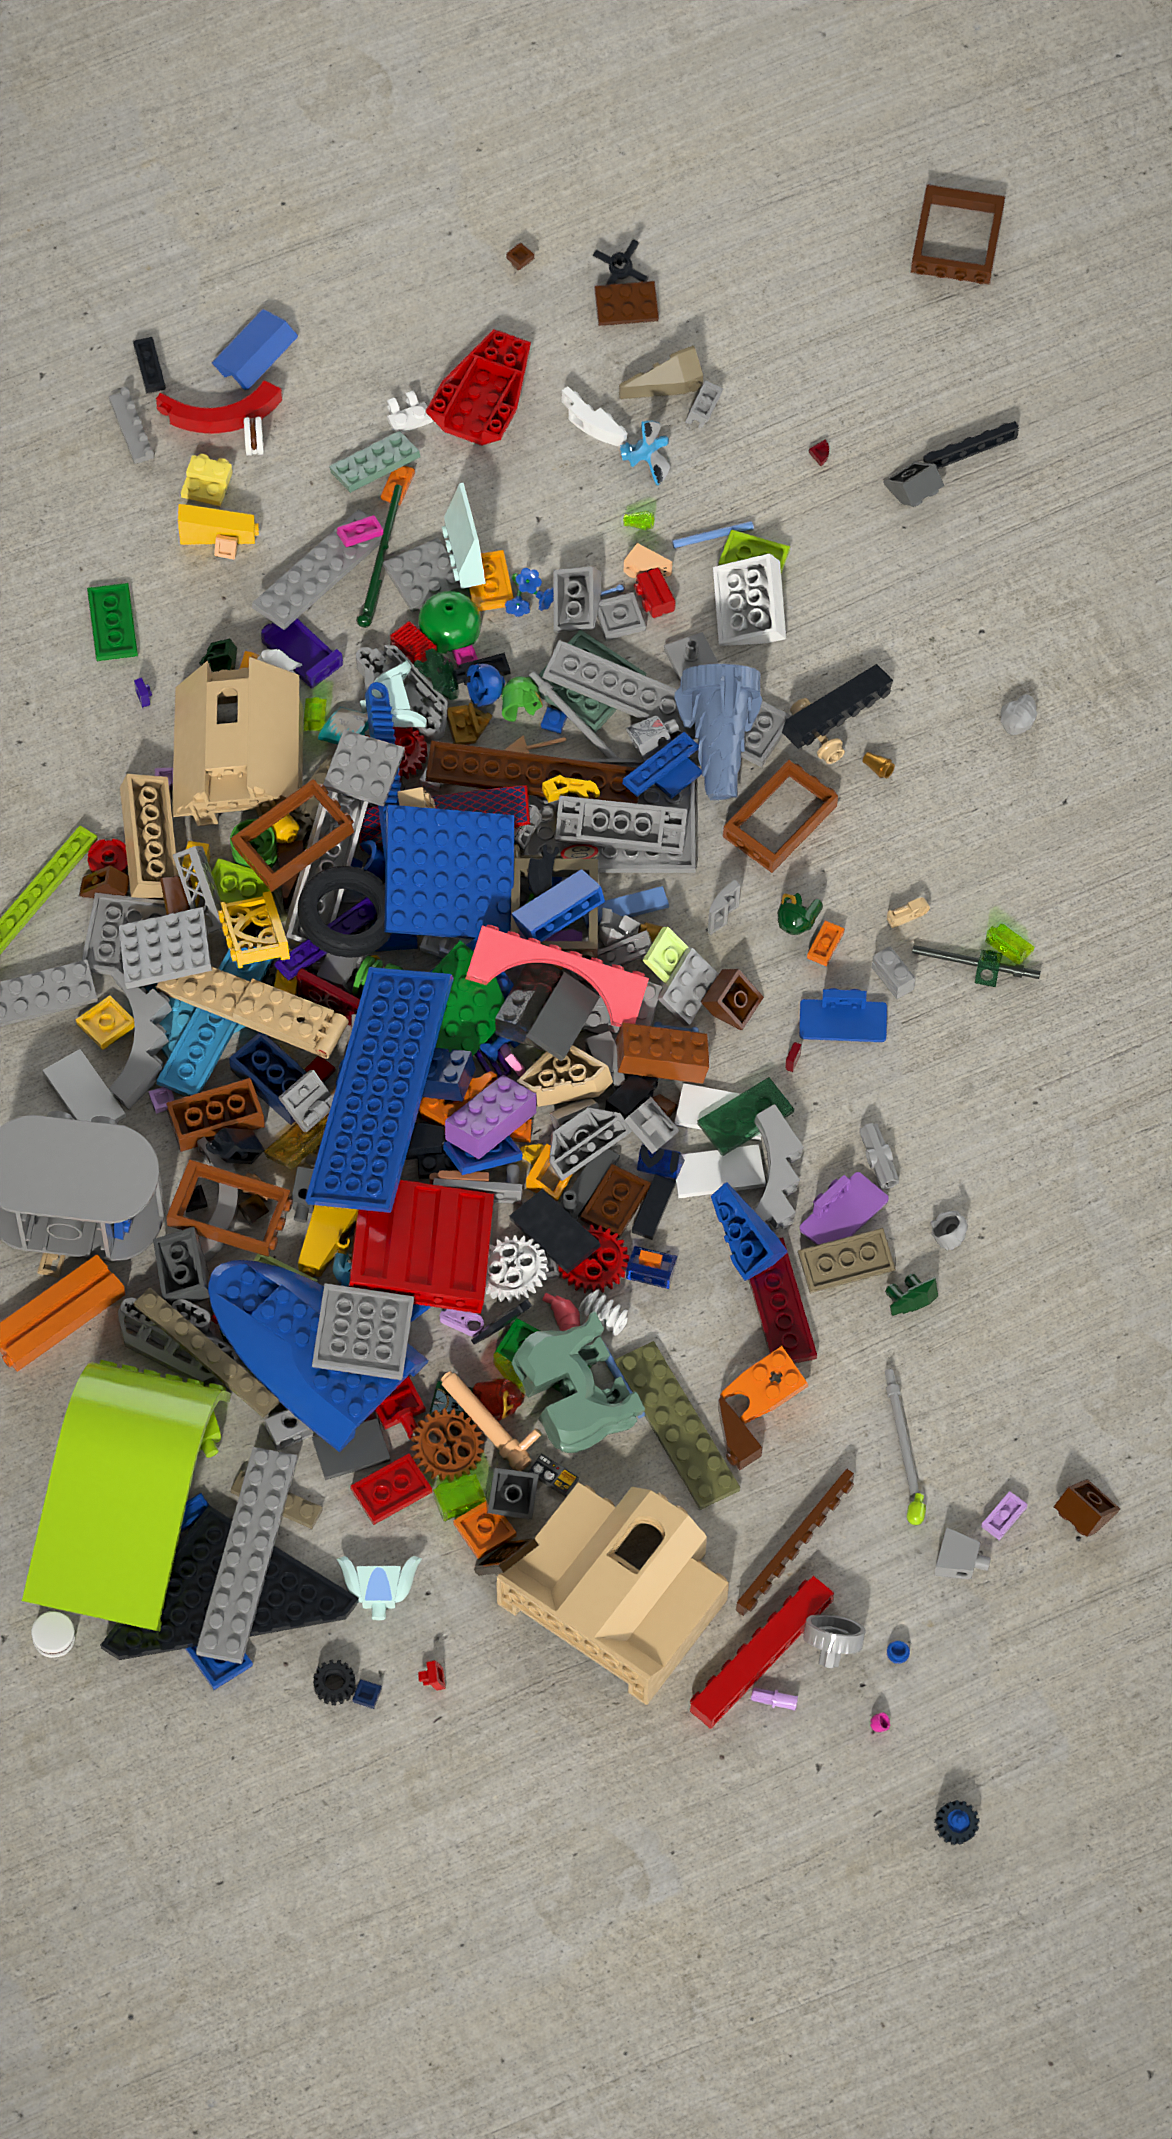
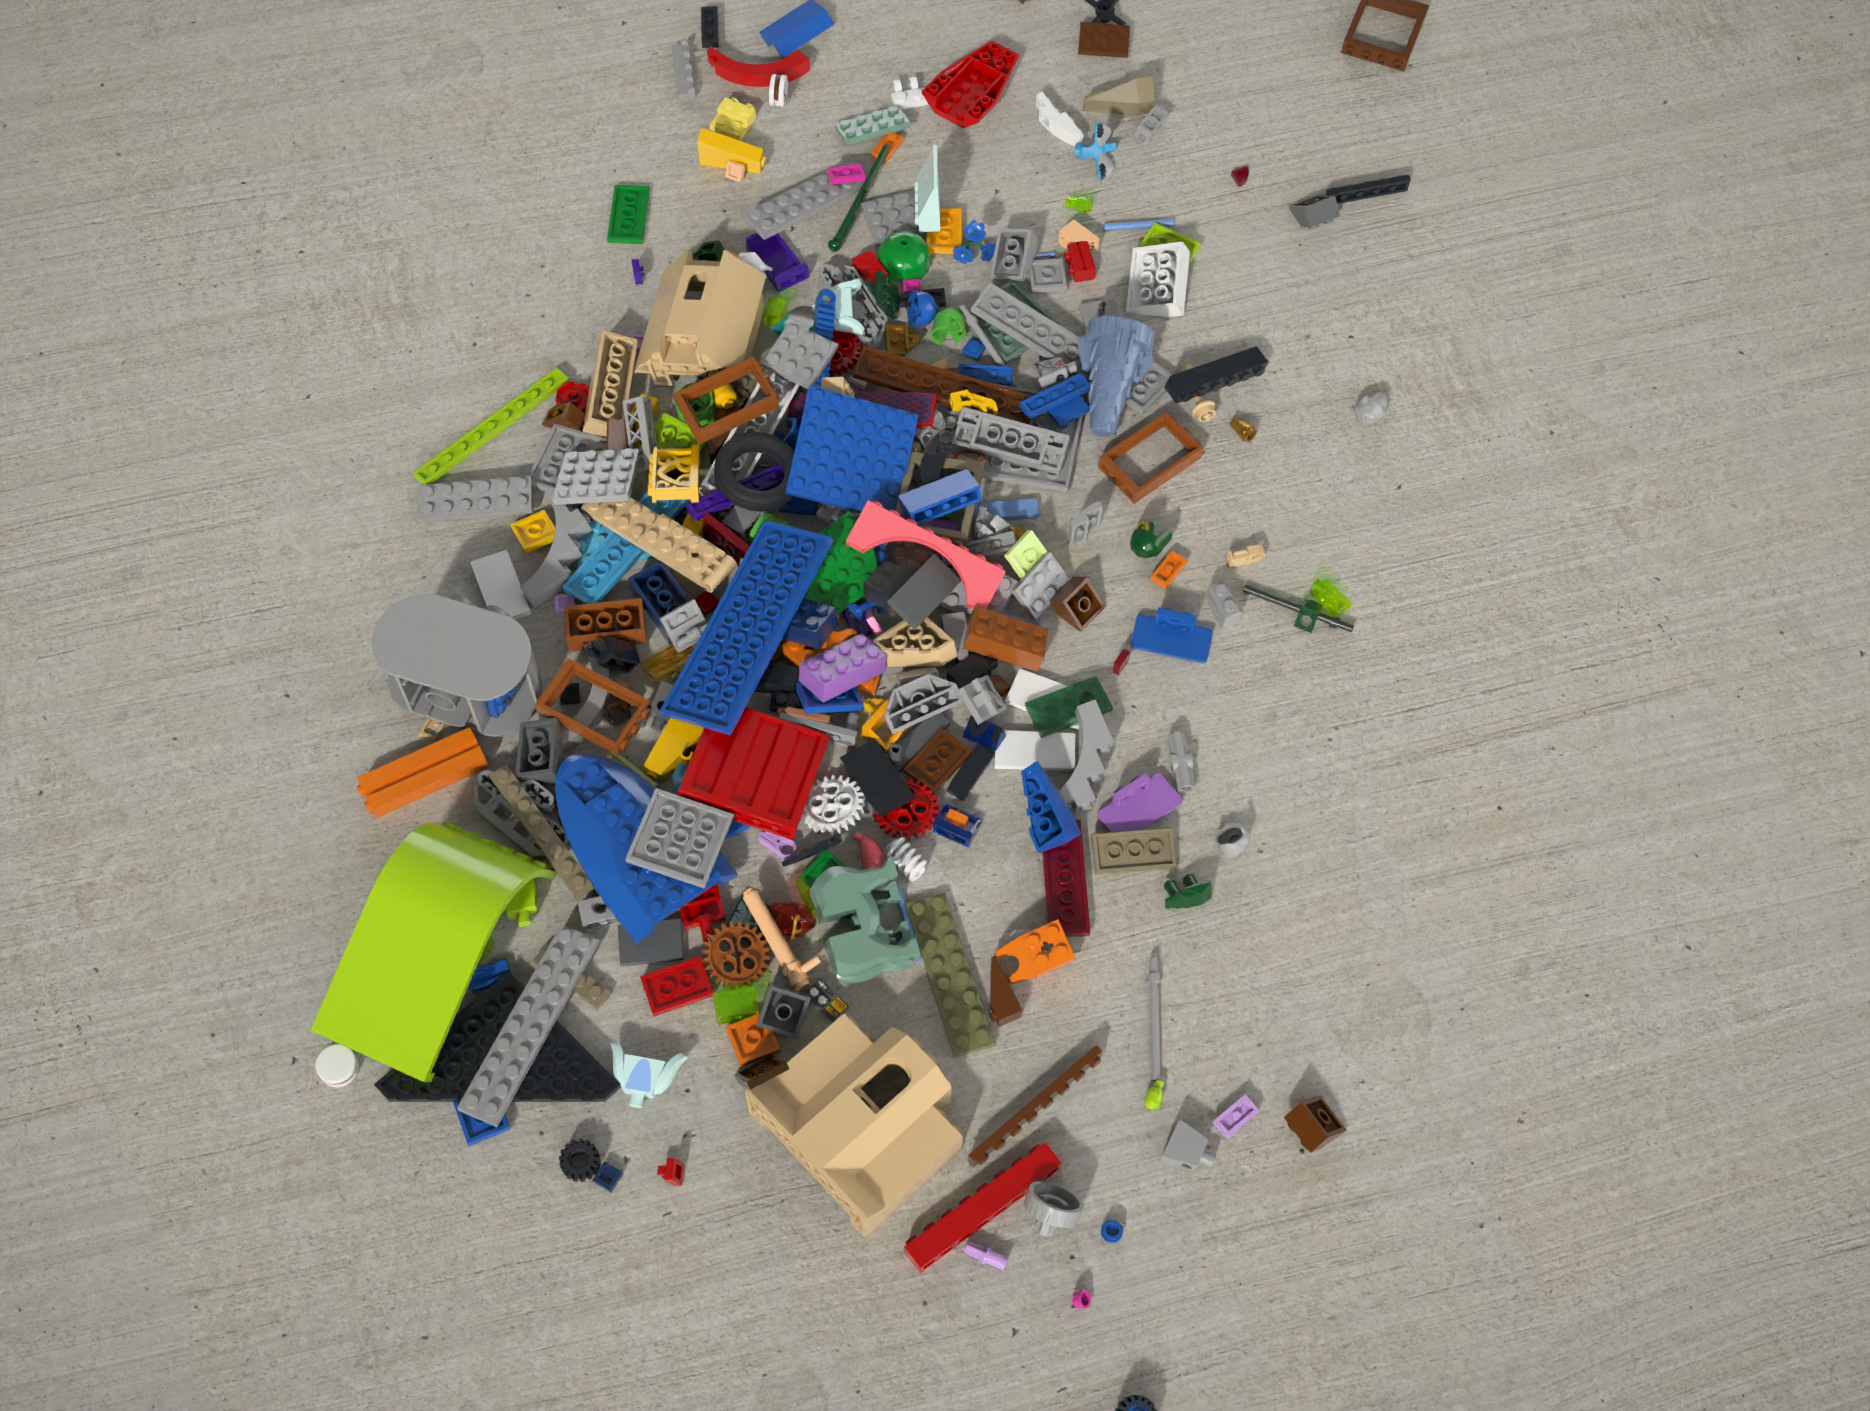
camera: 10 degrees right, 0 degrees up
(575, 748) = (988, 373): none -> blue tile

